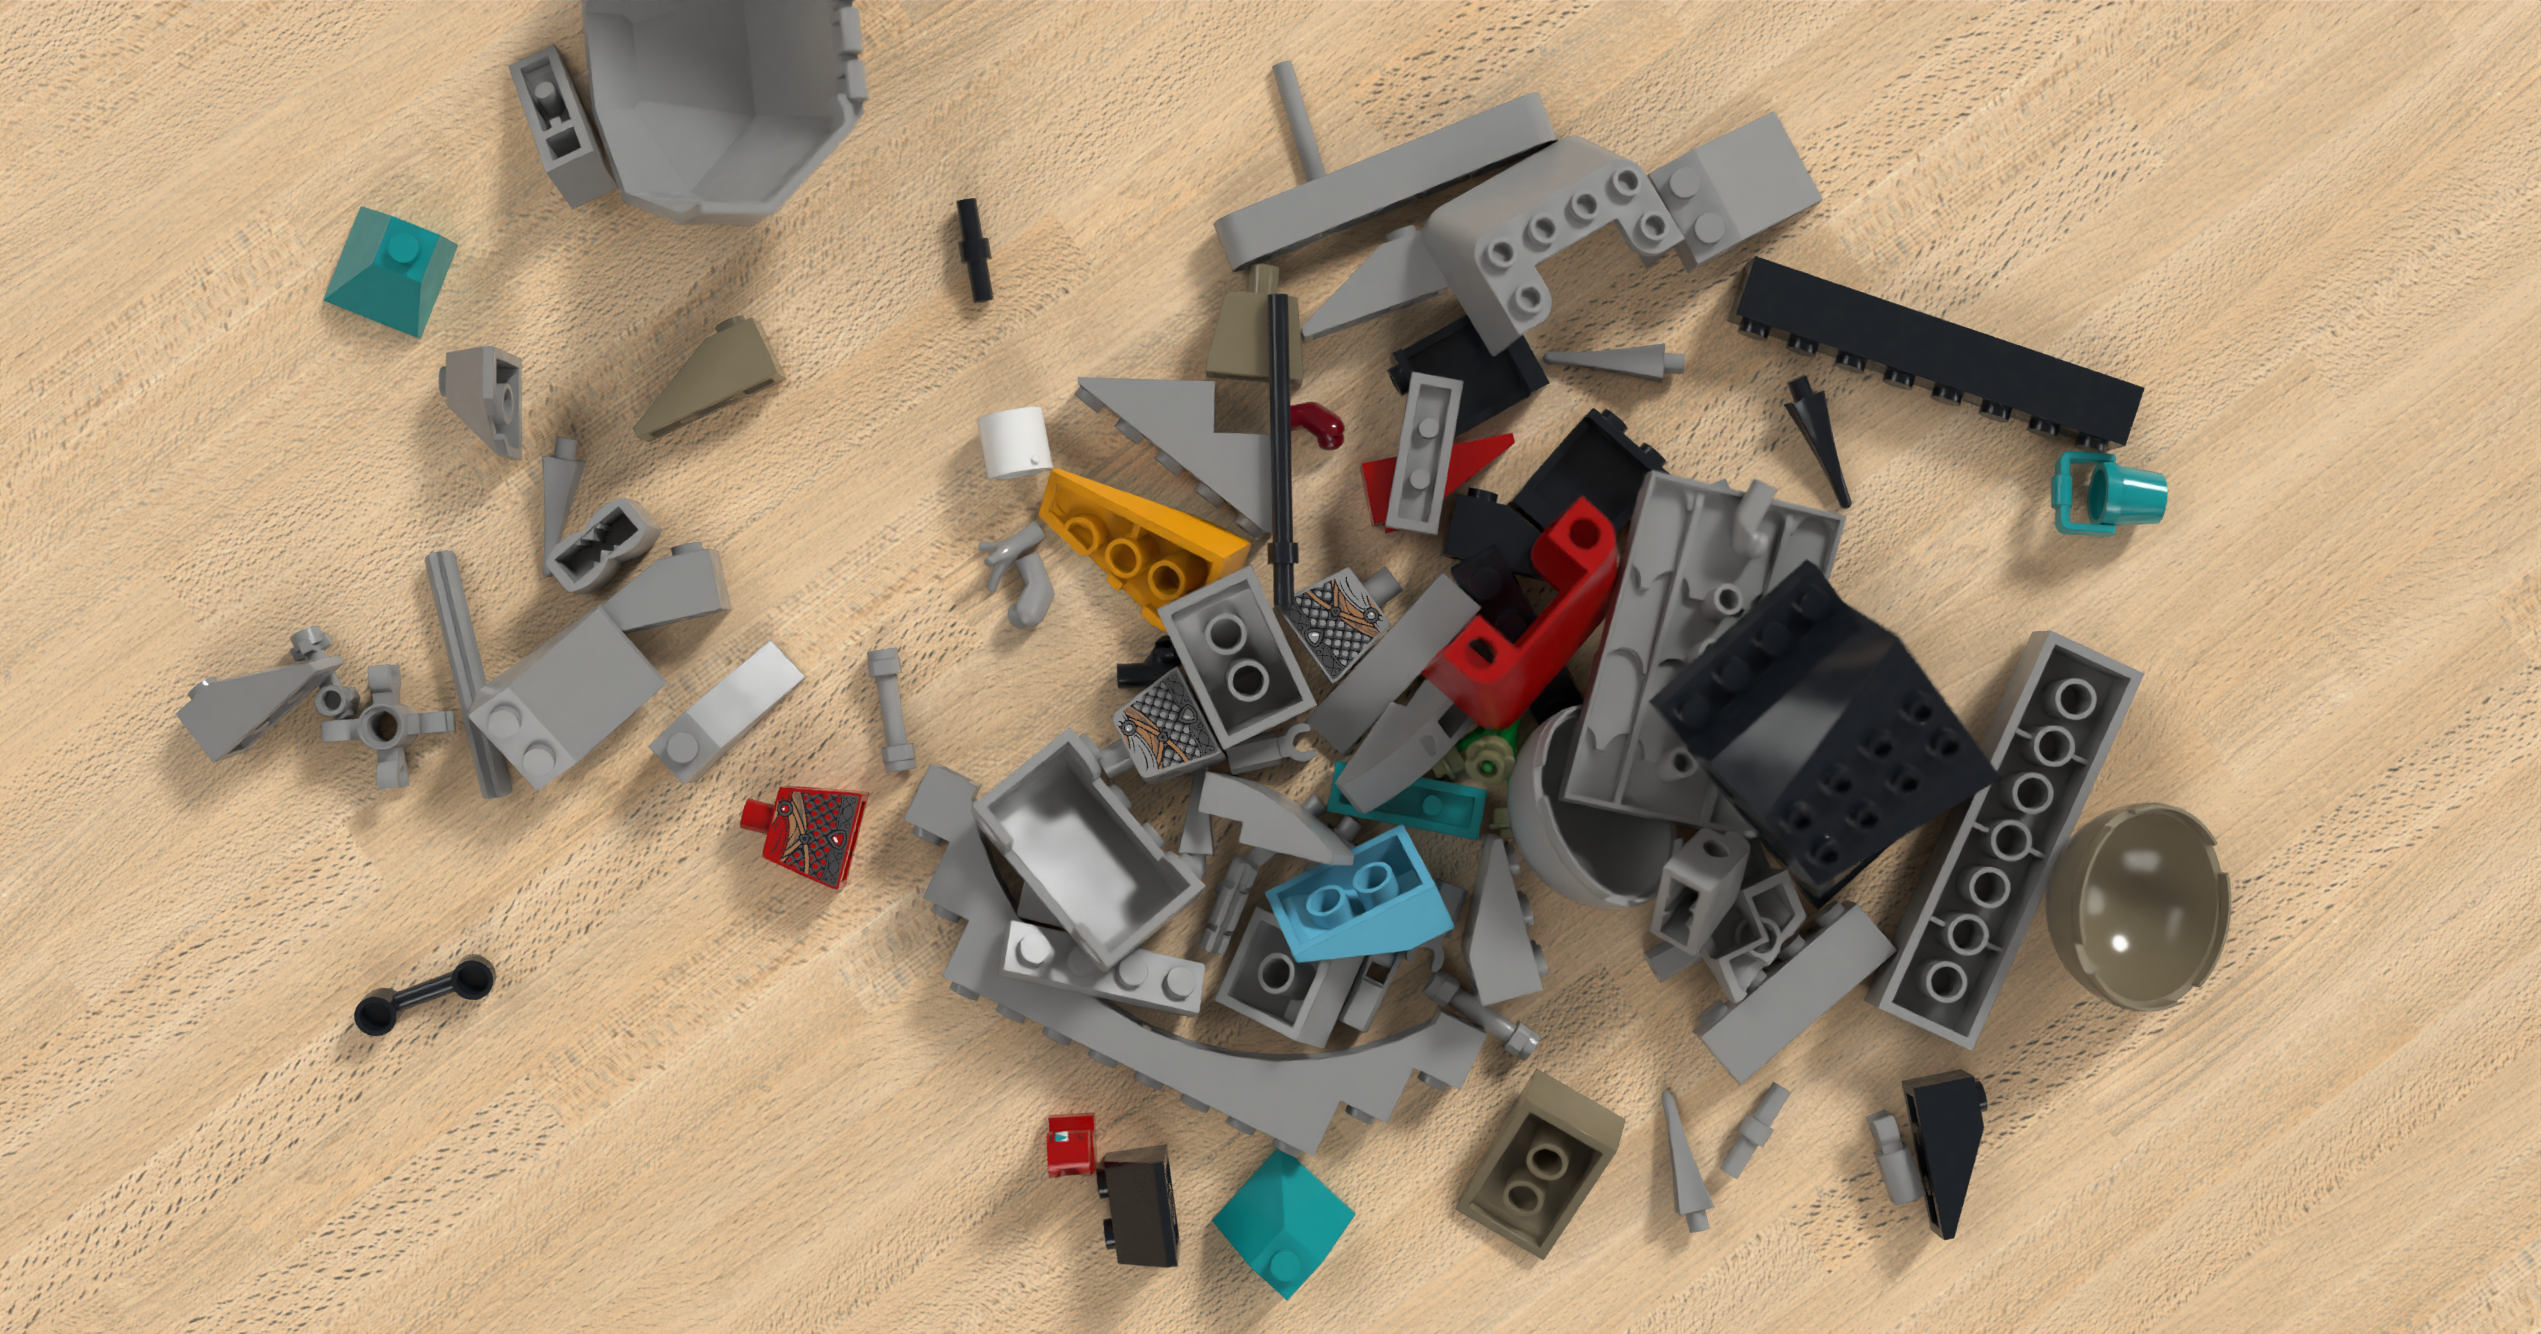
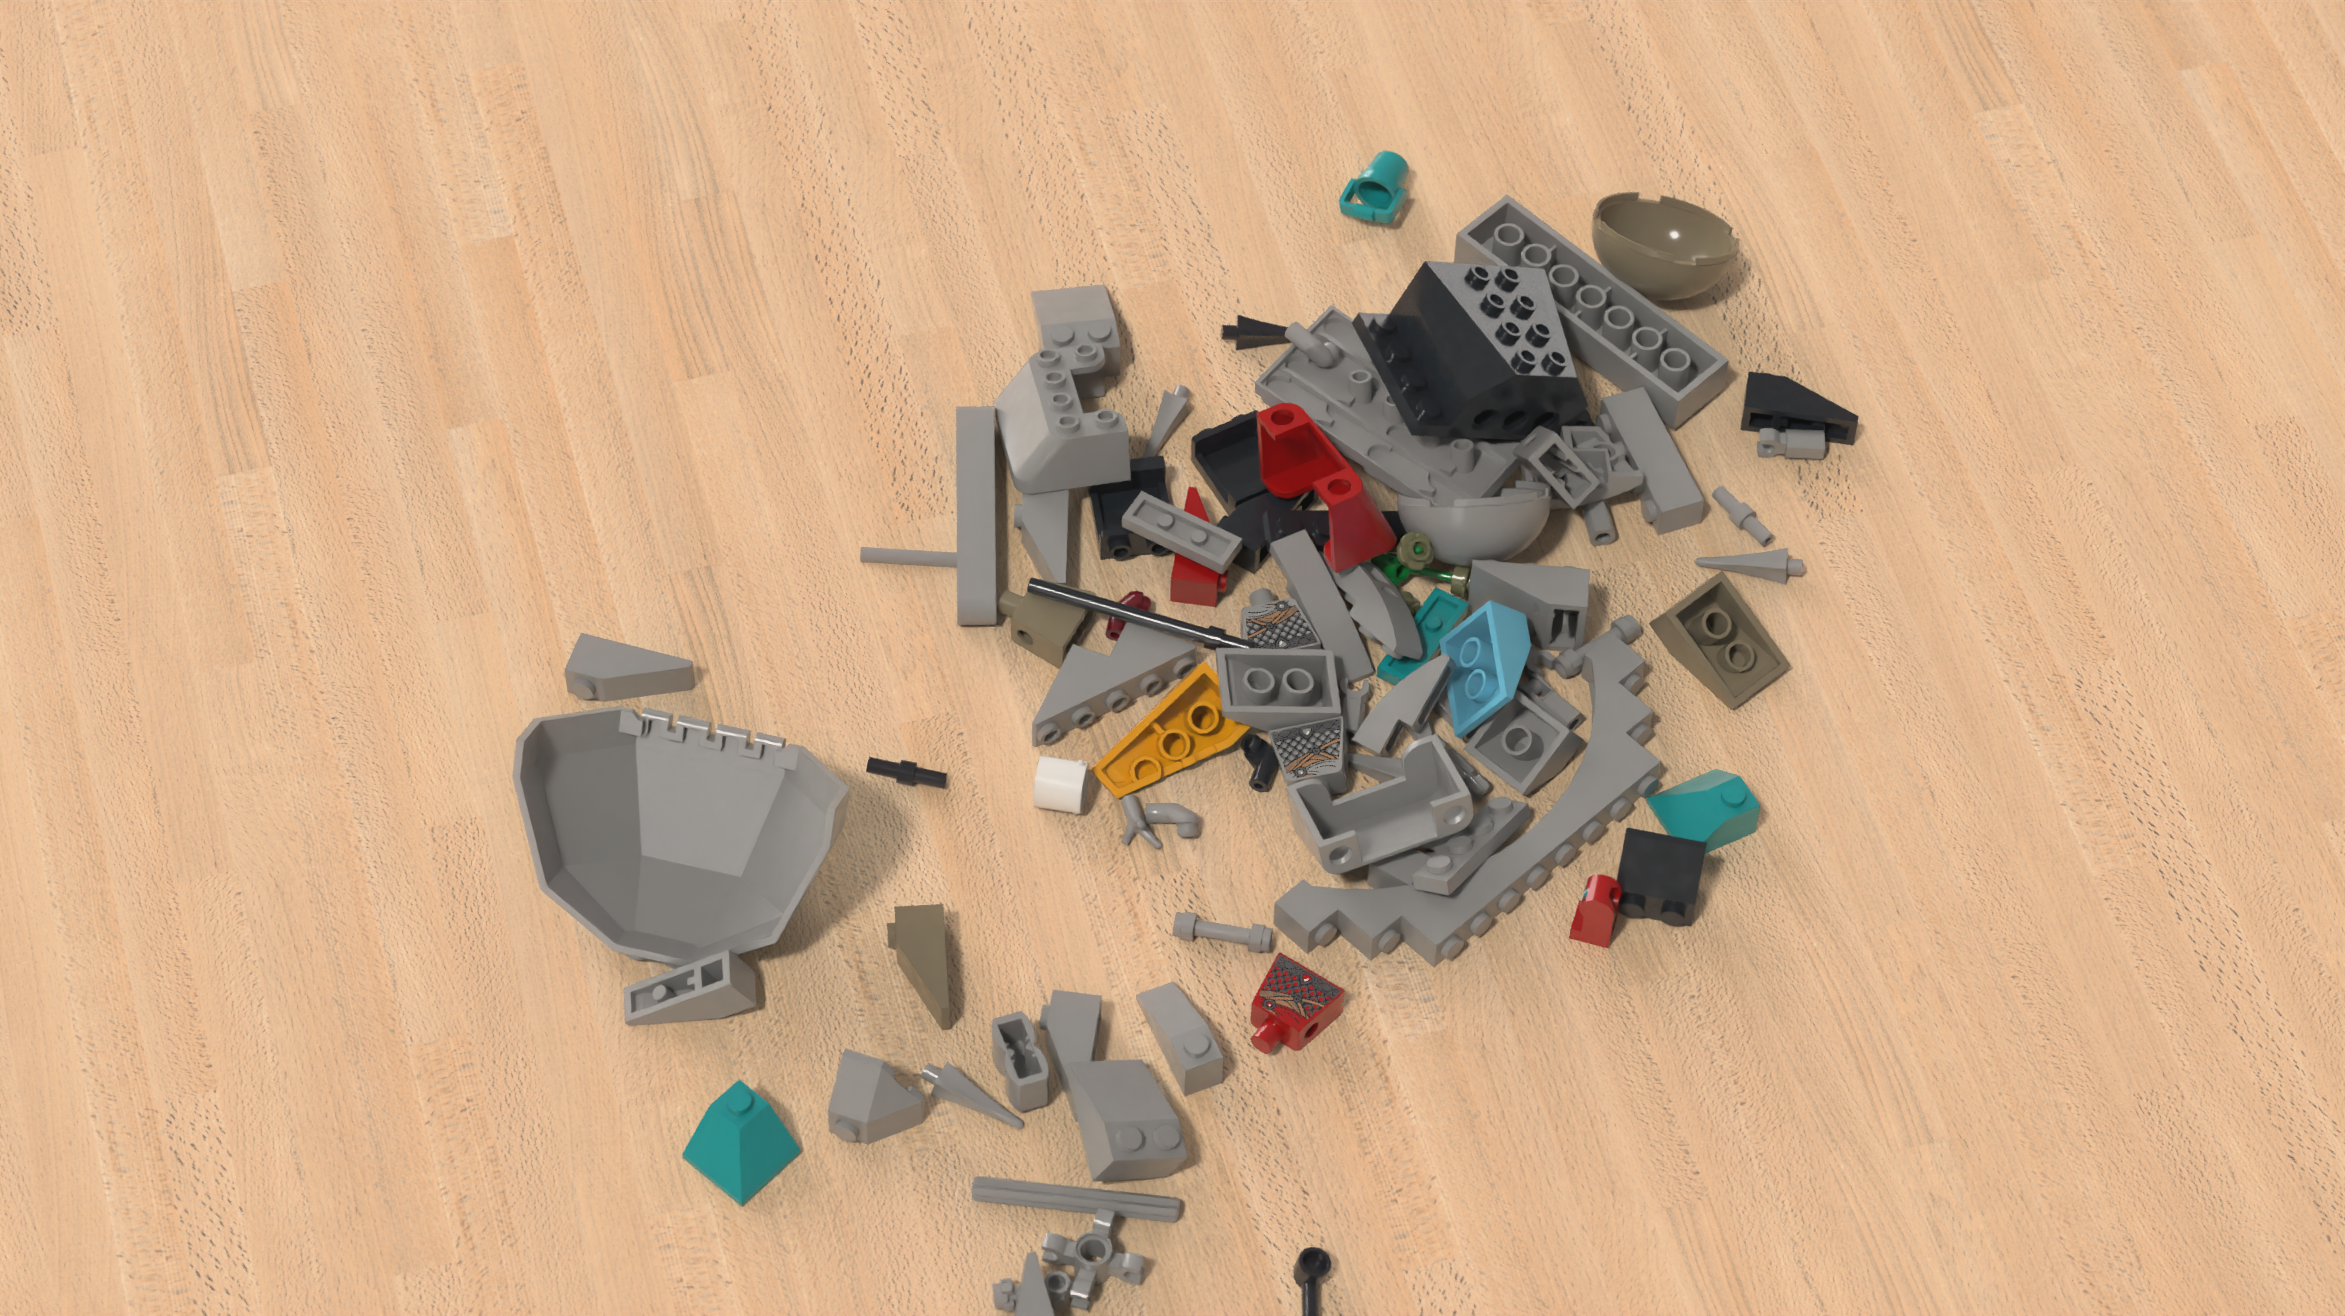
camera: 70 degrees left, 35 degrees down
(1934, 355) = (1238, 254): black brick -> none

